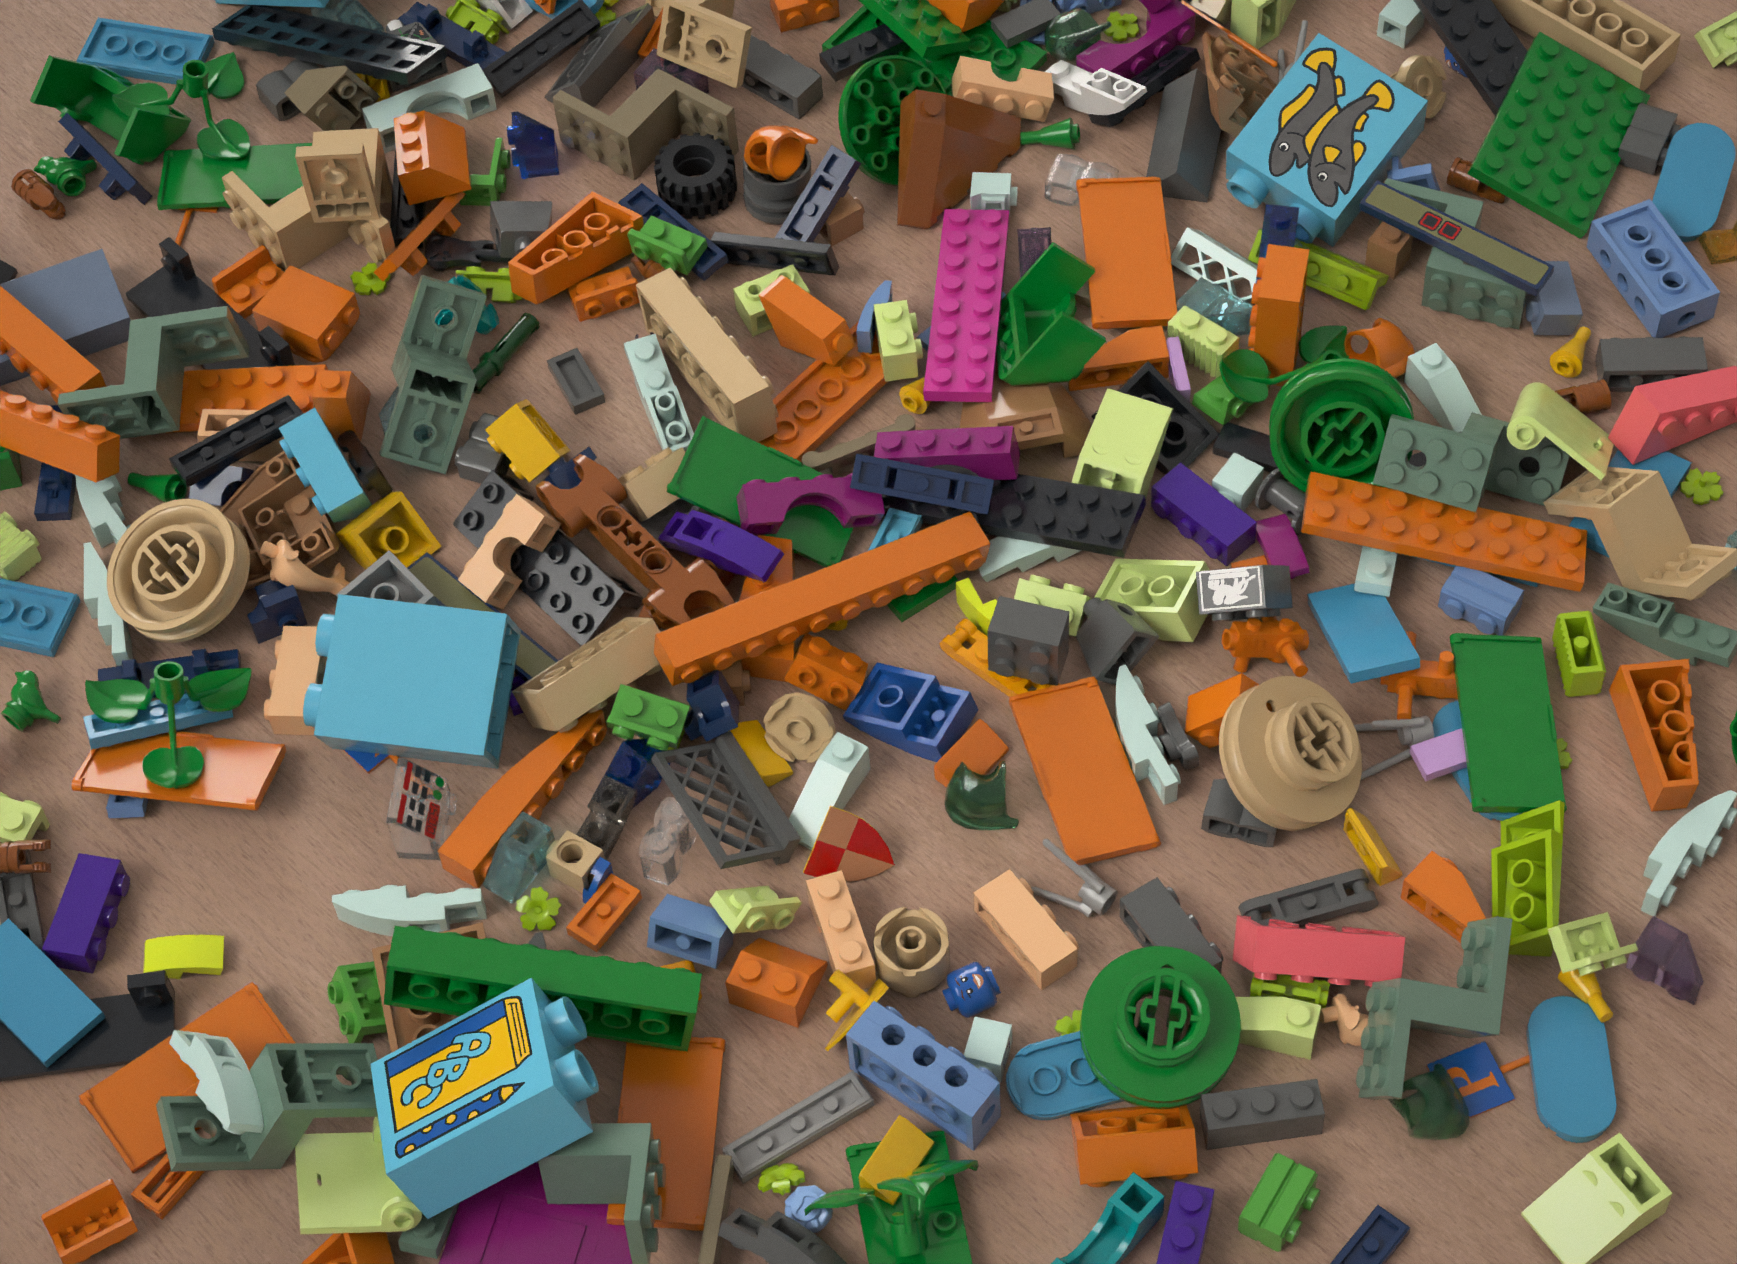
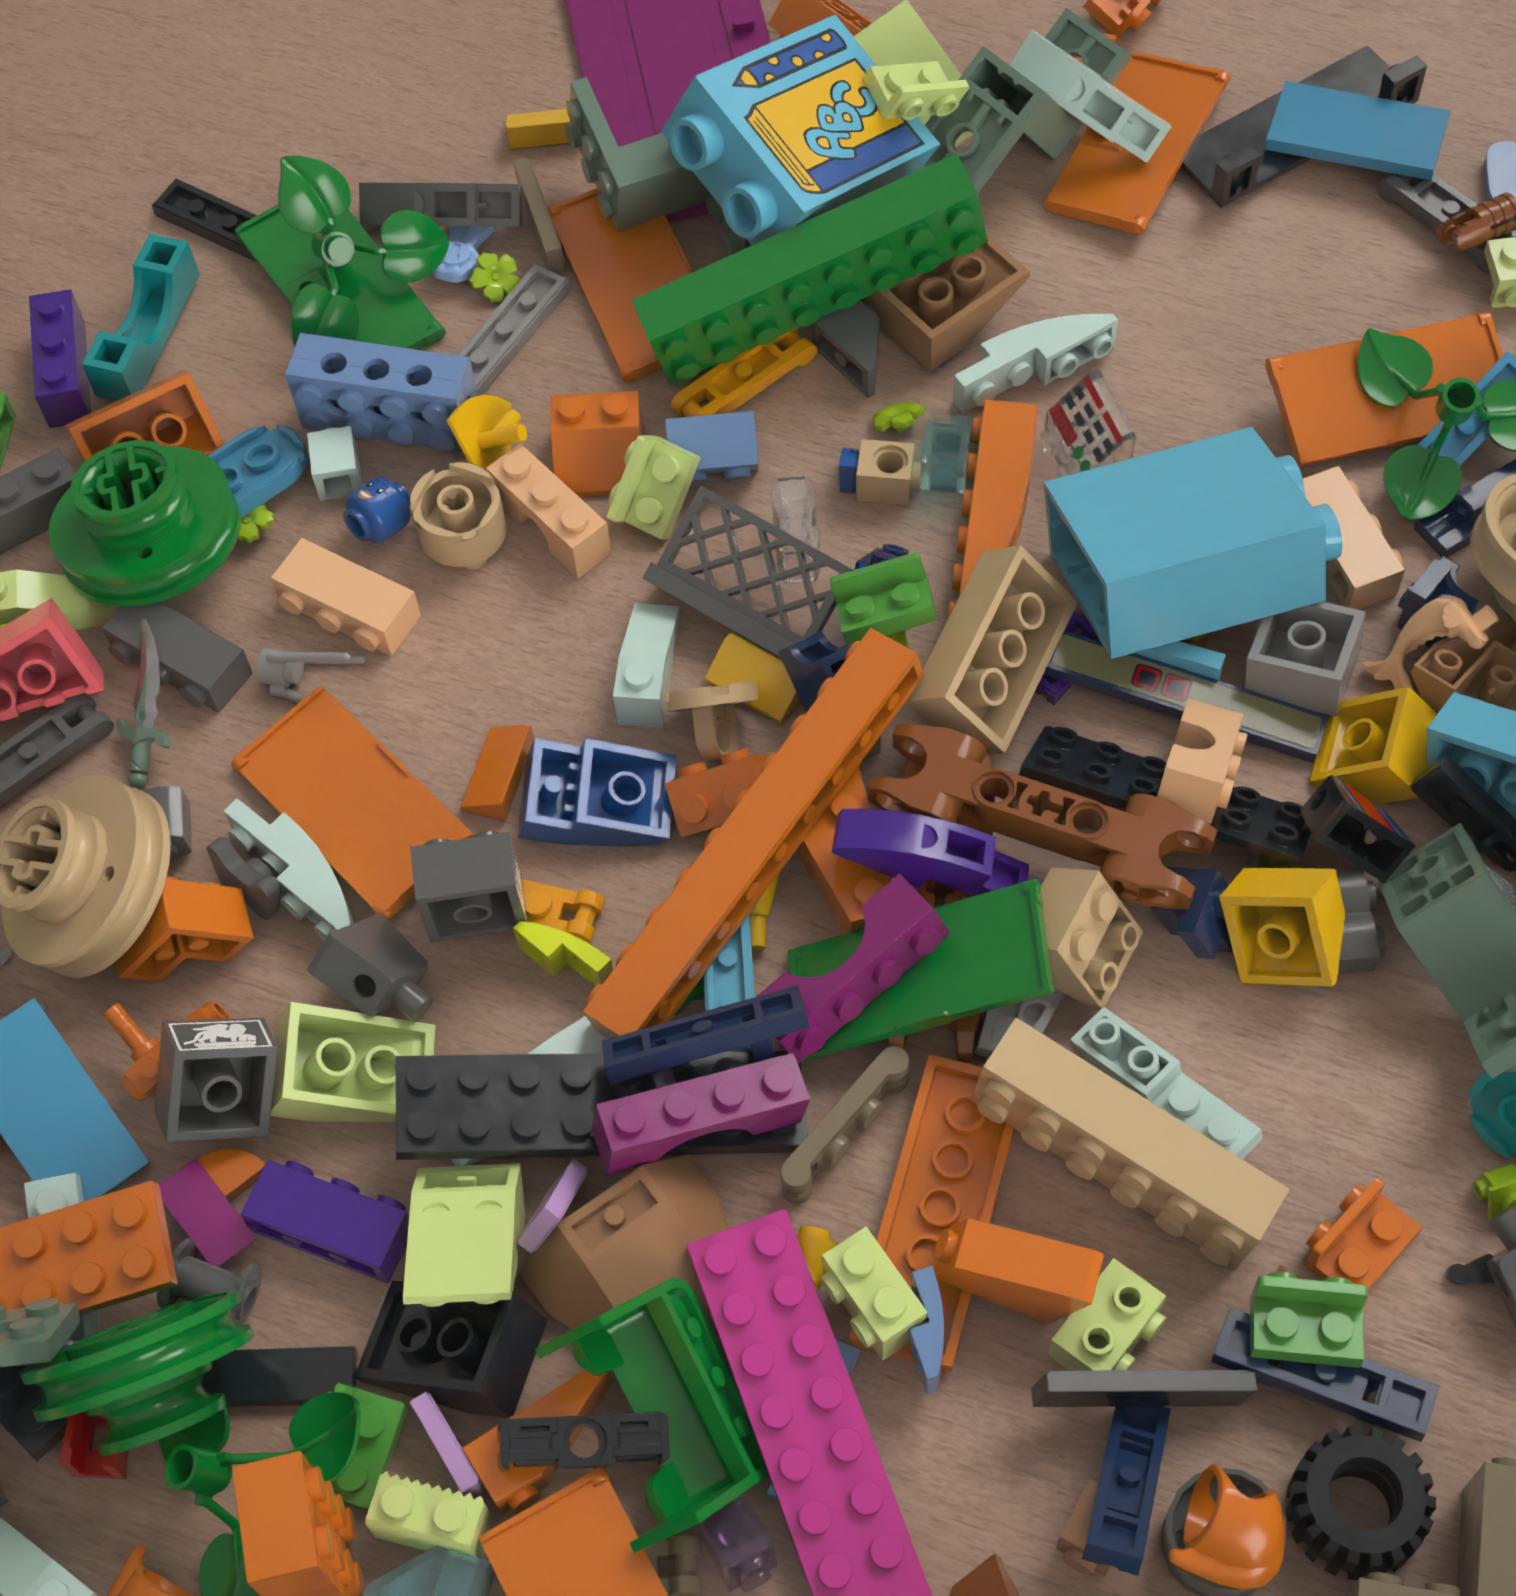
camera: 155 degrees right, 5 degrees up
(86, 913) = (1368, 227): dark purple brick -> none
(184, 954) = (1230, 234): neon yellow slope -> none
(357, 1000) = (1041, 261): bright green bracket -> none
(363, 1093) = (913, 90): none -> yellowish green bracket
(444, 484) = (1341, 817): none -> black torso
(493, 362) = (1433, 1060): dark green pin -> none
(573, 248) = (1442, 1276): orange wedge -> none
(576, 381) = (1304, 1085): dark grey tile -> none
(604, 912) = (823, 439): orange plate -> none
(607, 814) = (881, 522): clear smoke slope -> none
(849, 846) = (600, 604): shield -> none
(896, 1156) = (384, 312): yellow slope -> none
(978, 799) = (461, 719): clear green piece -> none
(1061, 451) = (553, 1206): none -> lavender tile
(1070, 598) = (484, 1009): yellowish green bracket -> none
(1118, 333) = (619, 1436): none -> black piece
(1207, 896) = (145, 707): none -> piece
(1239, 480) = (296, 1288): light aqua brick -> none

